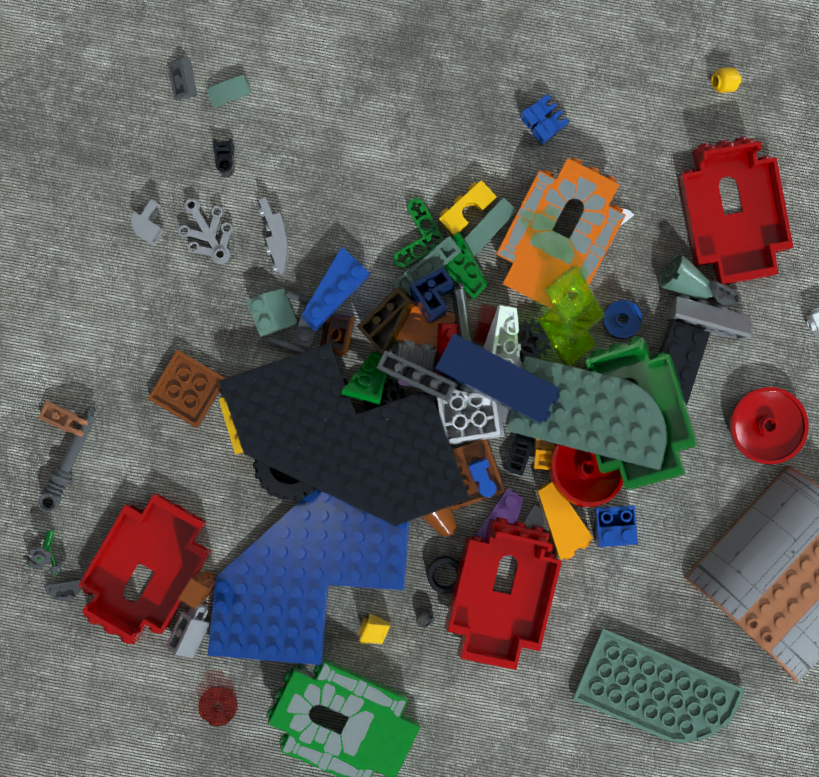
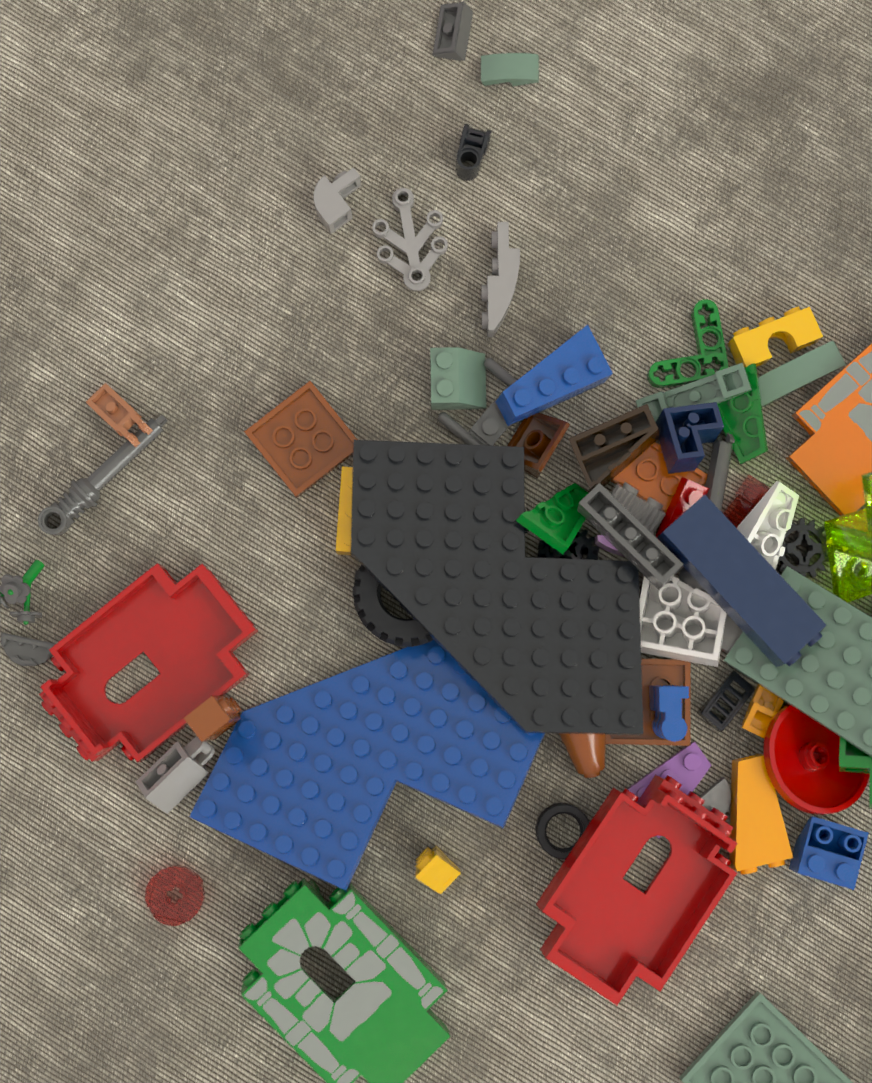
camera: 15 degrees right, 5 degrees down
(424, 617) = (511, 880): dark grey plate -> none

